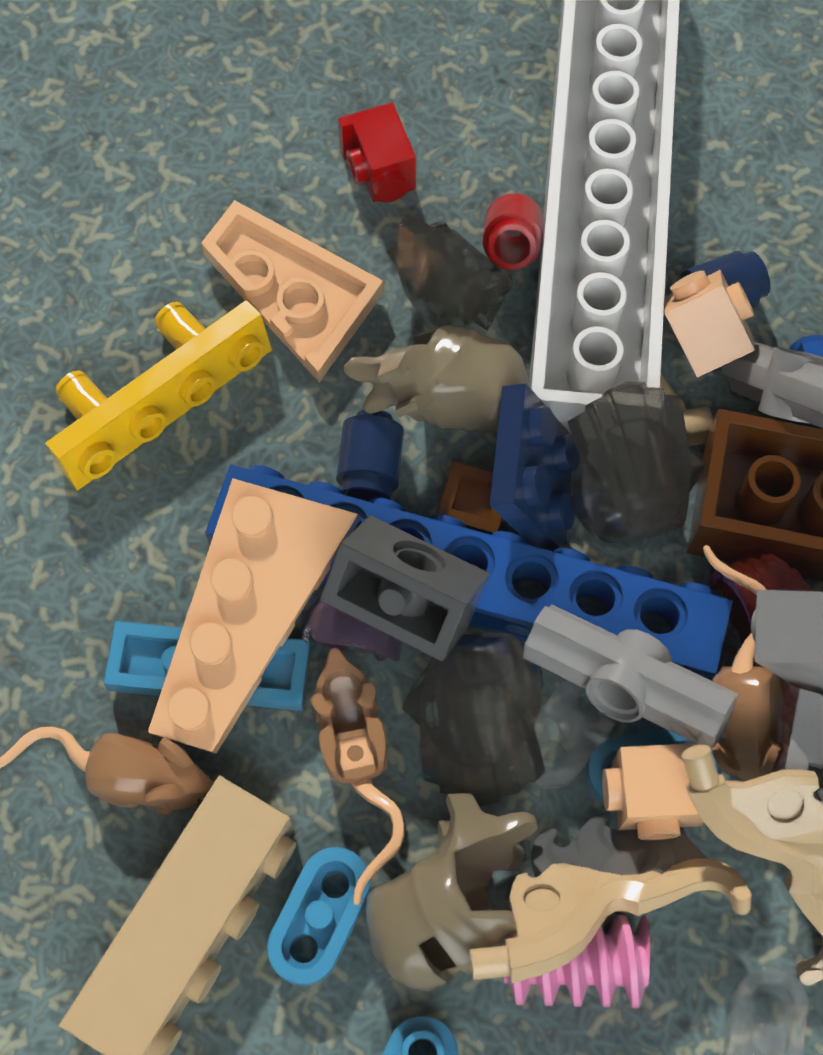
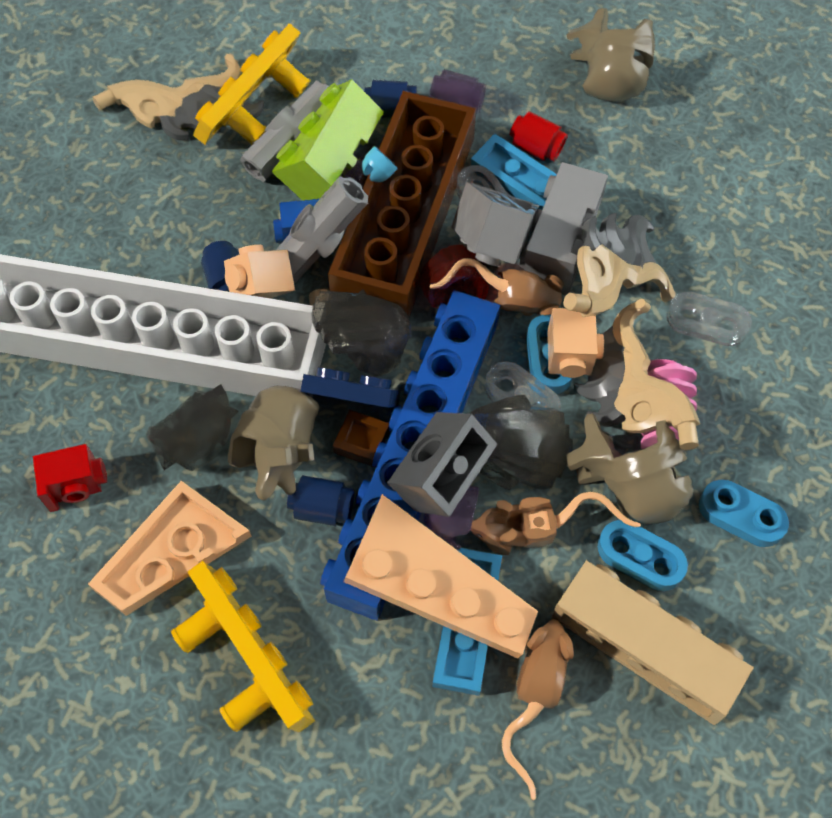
camera: 85 degrees left, 5 degrees down
(513, 231) = (159, 389): red brick -> none
(630, 676) = (507, 343): light grey piece -> none

